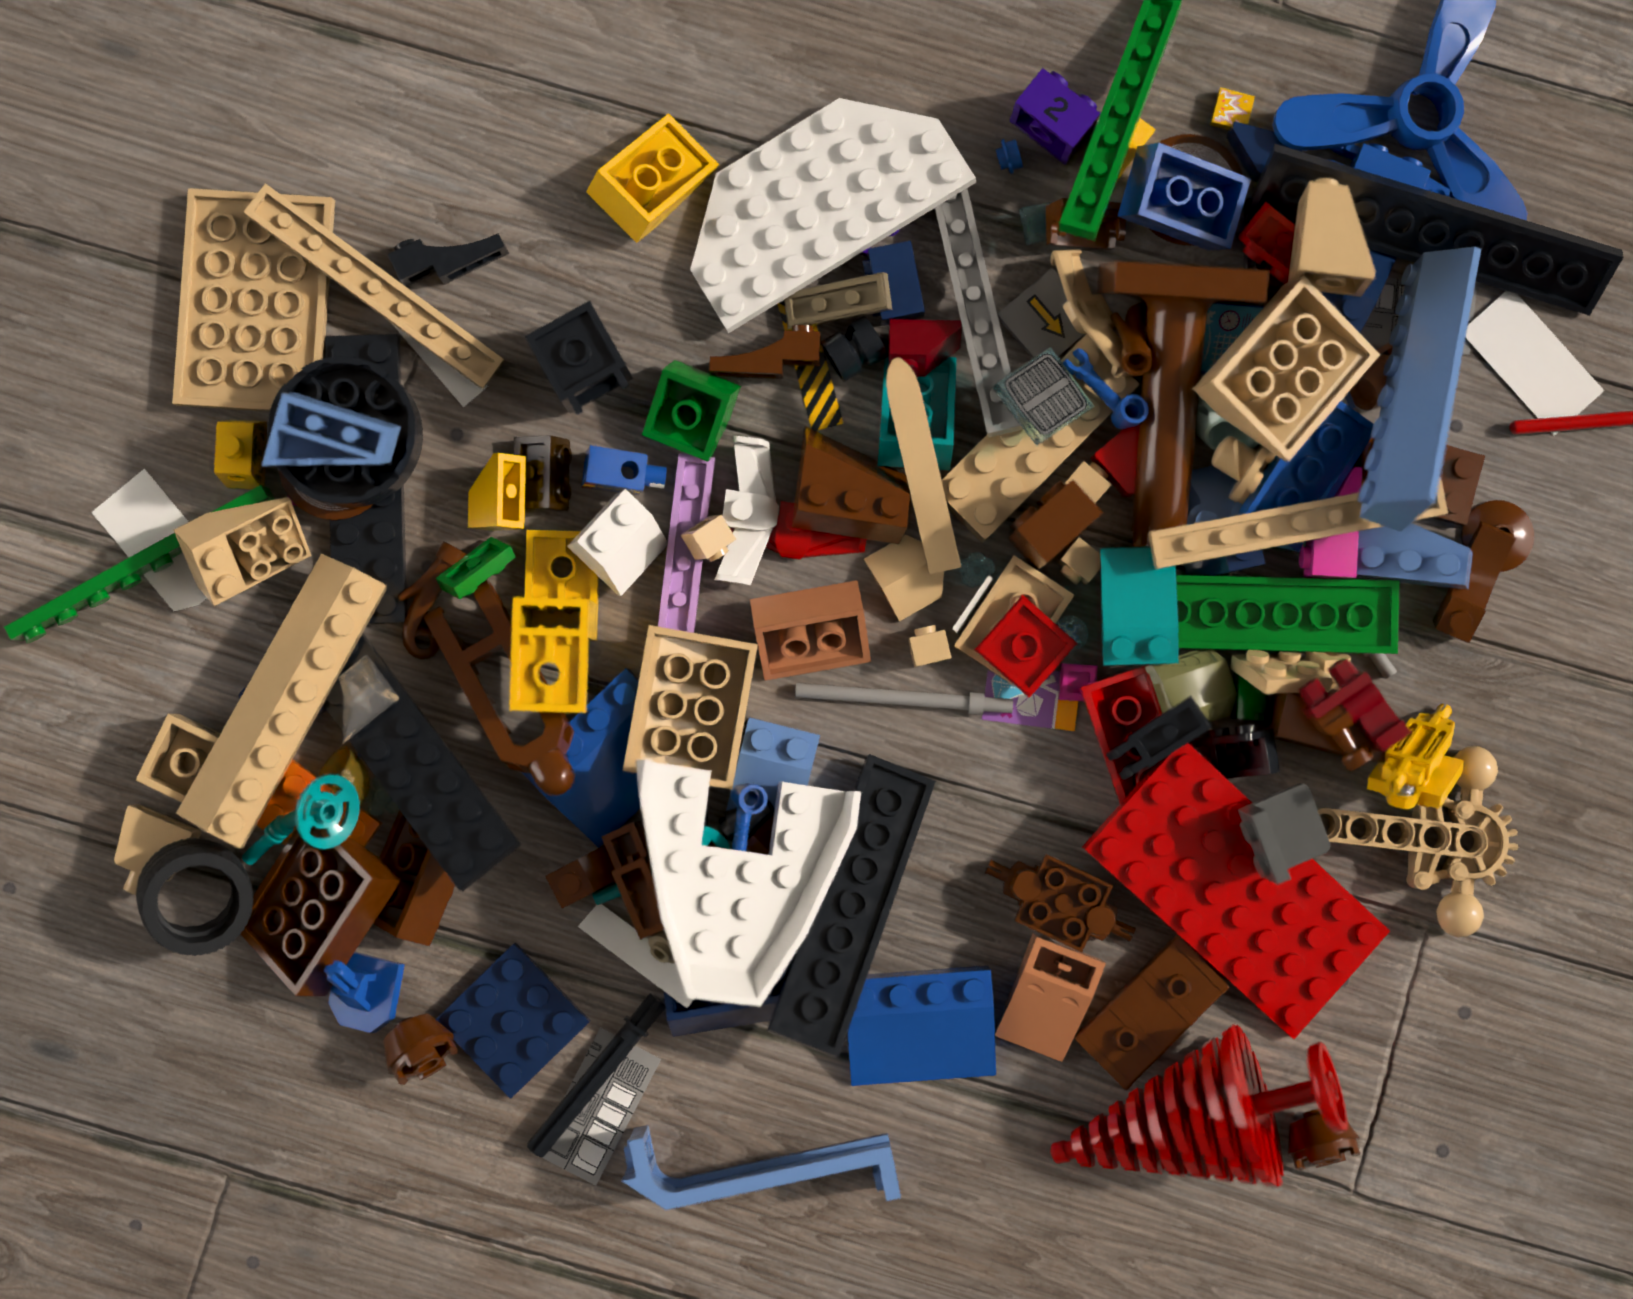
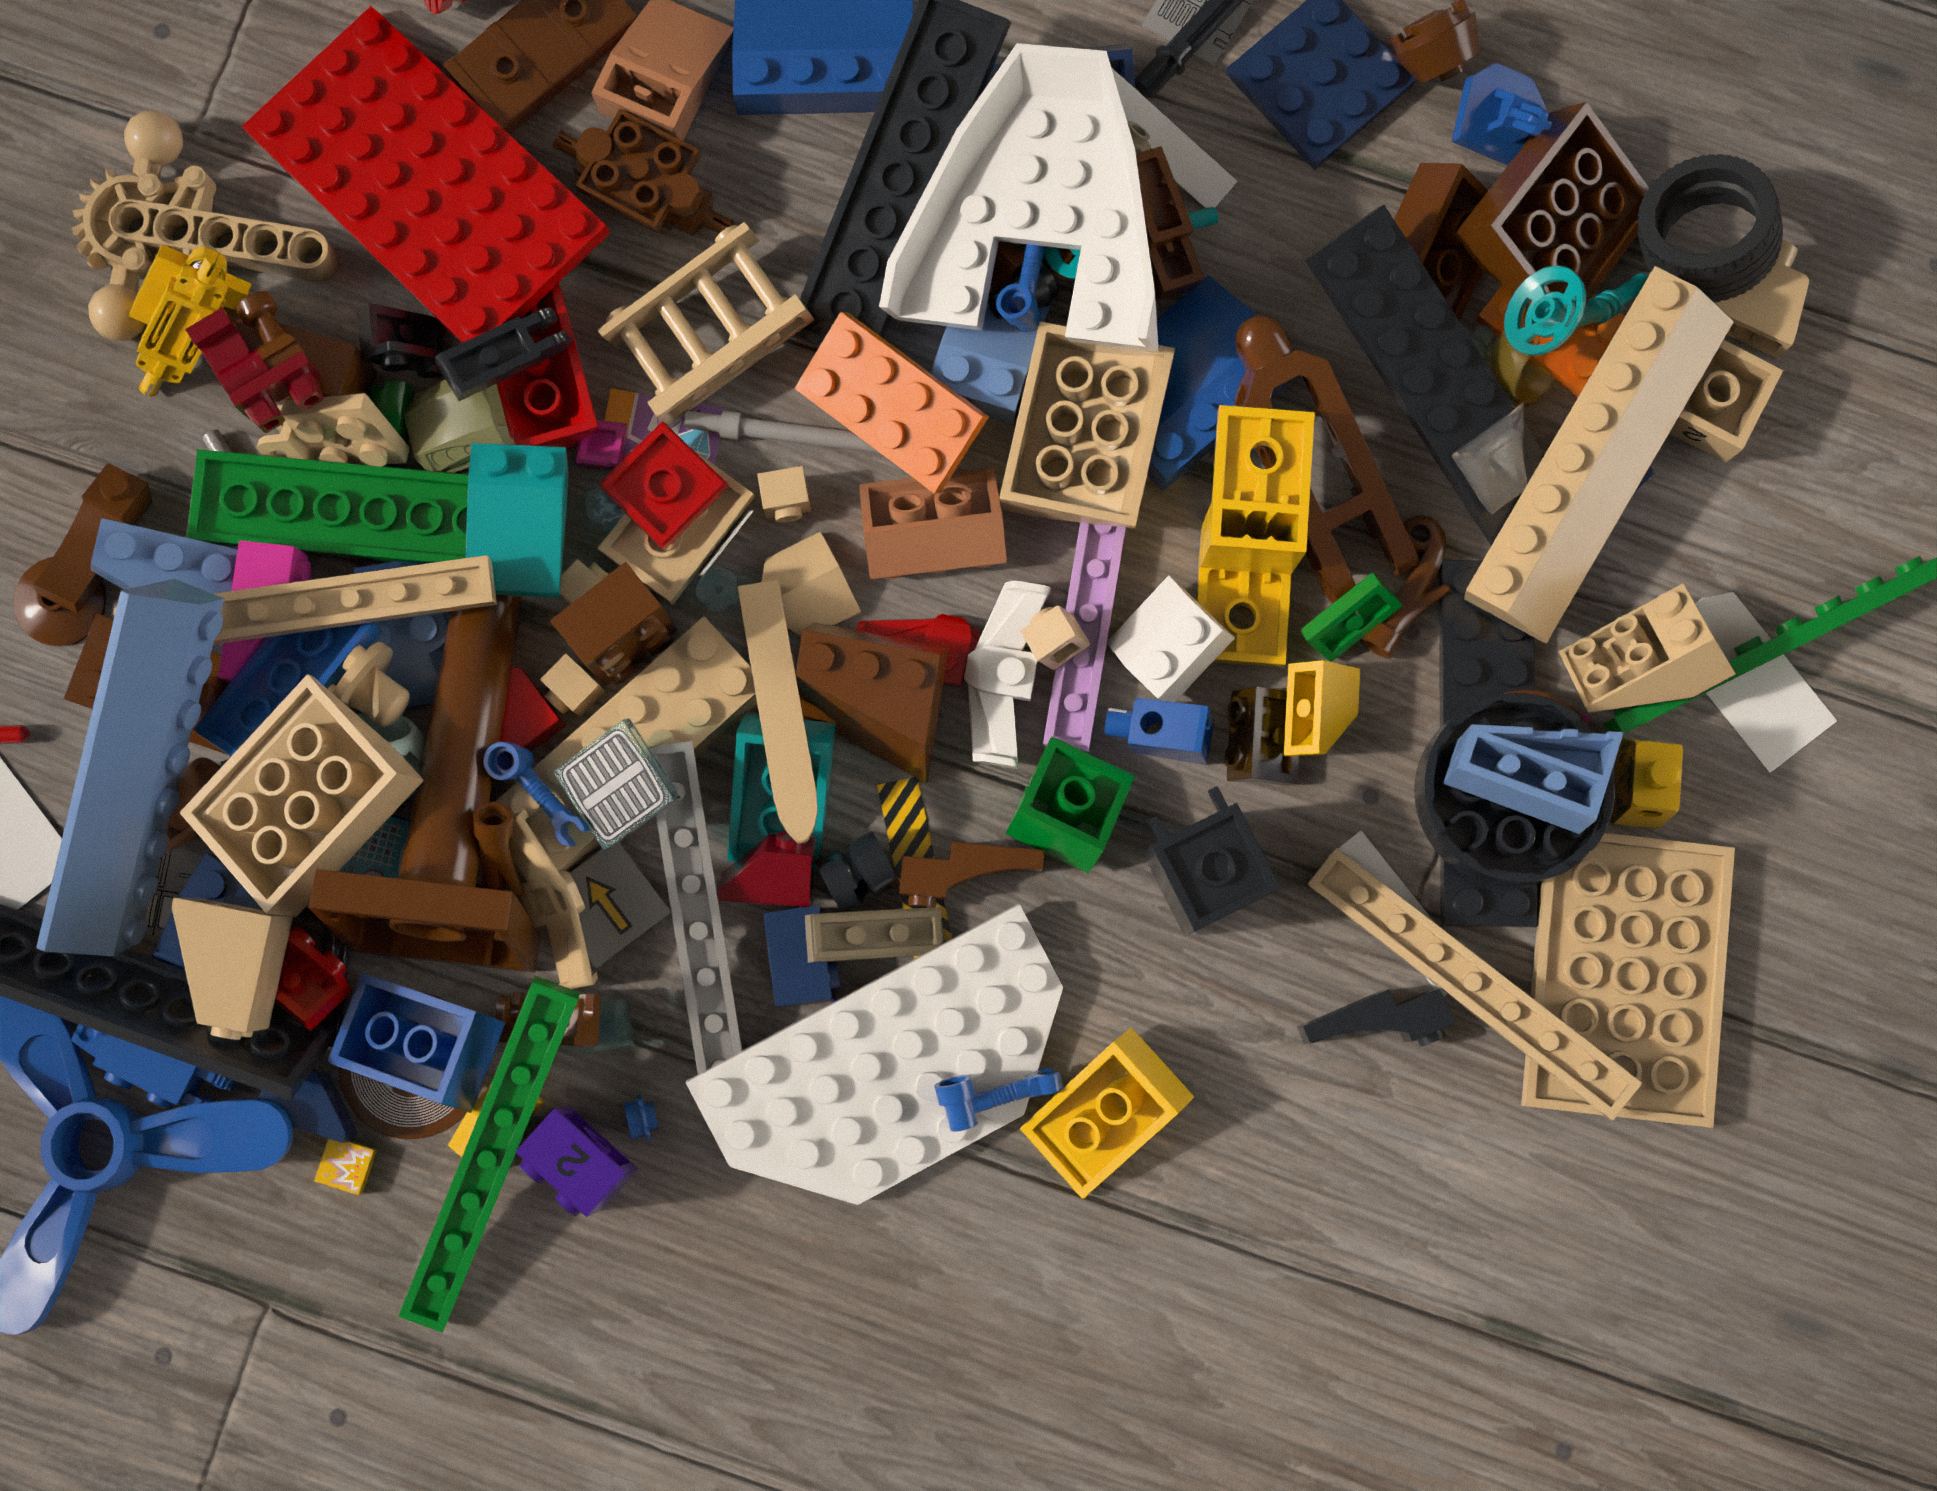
camera: 175 degrees left, 5 degrees down
(581, 877) = (1232, 235): reddish brown slope -> none
(763, 174) = (962, 1103): none -> blue brick
(848, 721) = (891, 402): none -> orange plate
(968, 768) = (746, 342): none -> tan fence
(1283, 831) = (359, 232): dark grey bracket -> none

